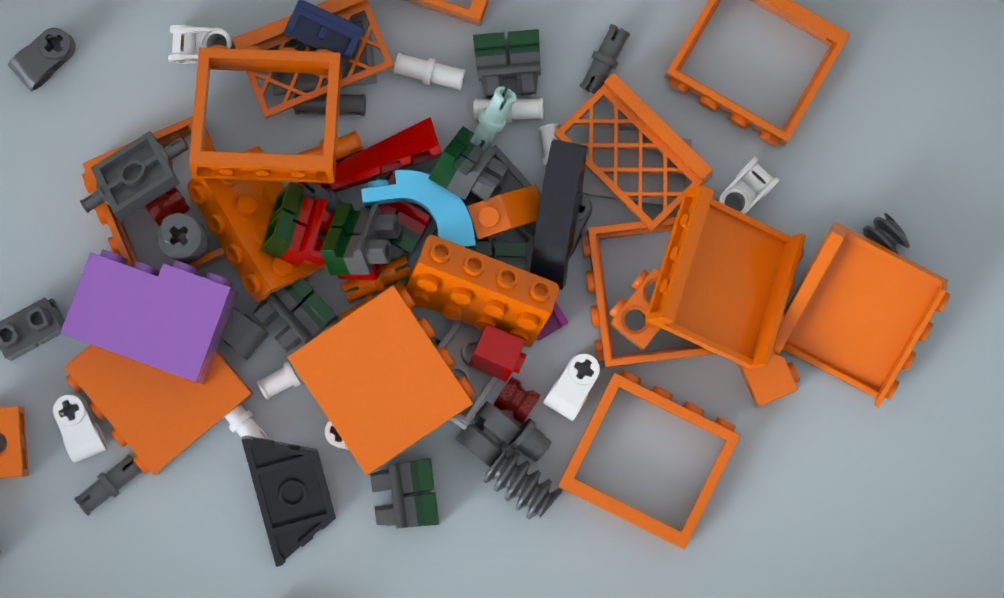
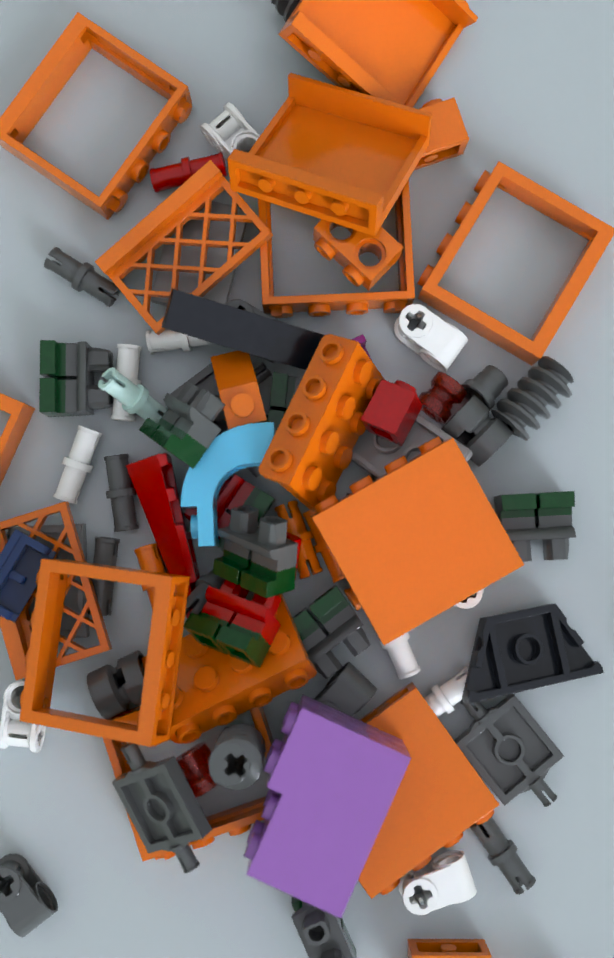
camera: 85 degrees left, 0 degrees up
(200, 484) = (509, 749): none -> dark grey plate
(230, 119) = (109, 687): none -> dark grey wheel
(406, 113) = (121, 493): none -> dark grey pin
(712, 148) = (176, 174): none -> red pin

